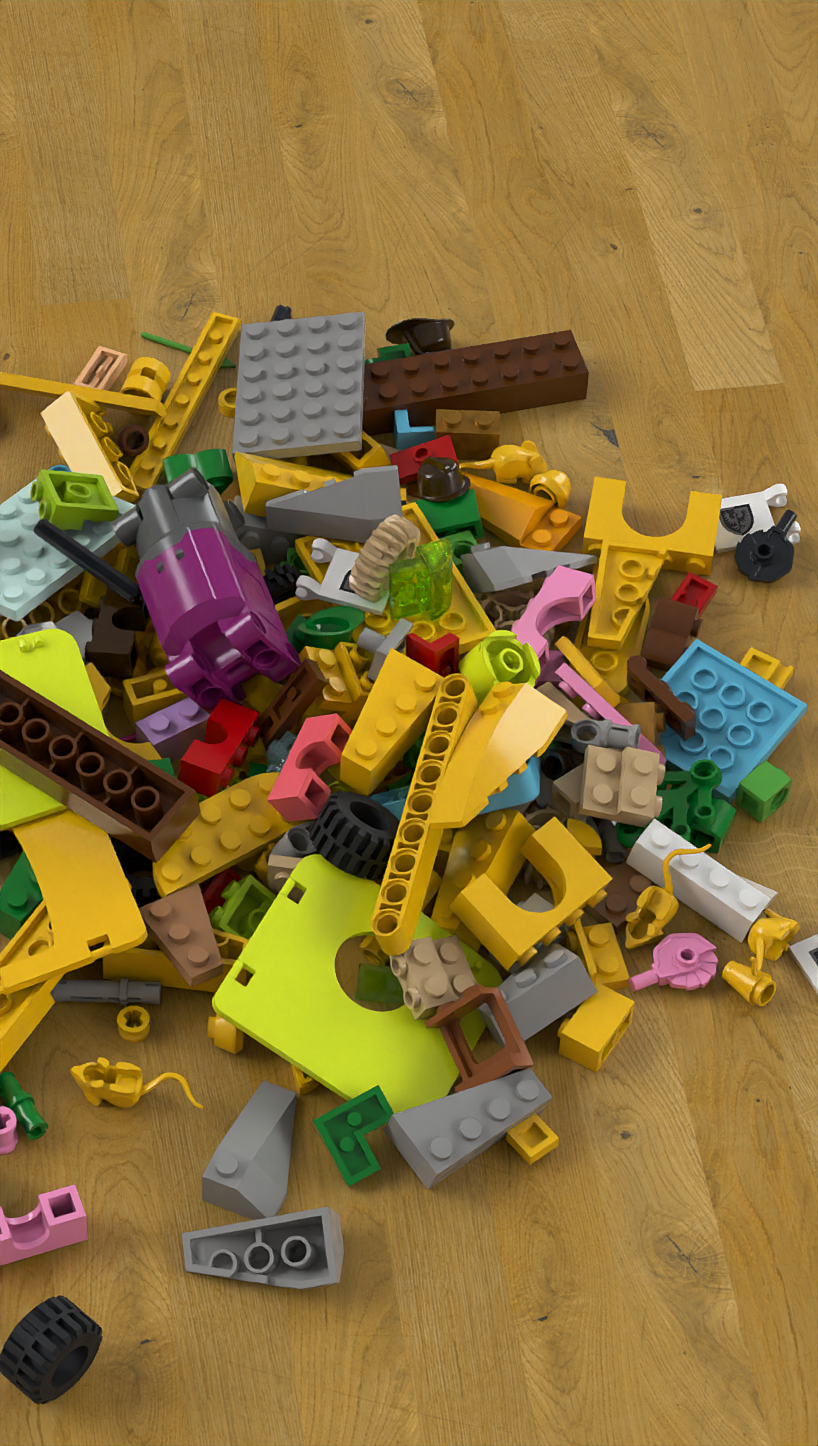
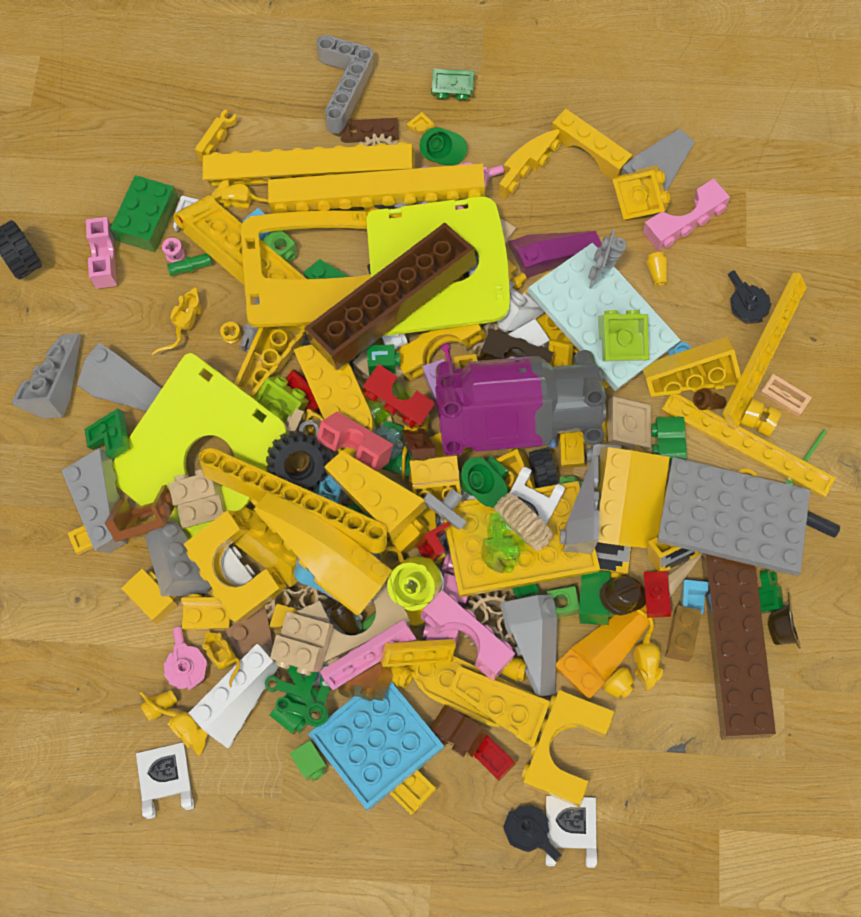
camera: 110 degrees right, 20 degrees up
(88, 560) = (567, 332): black axle -> none
(184, 934) = (262, 355): medium nougat wing -> none
(606, 734) = (340, 642): light grey connector -> none
(648, 688) = (391, 702): reddish brown plate -> none

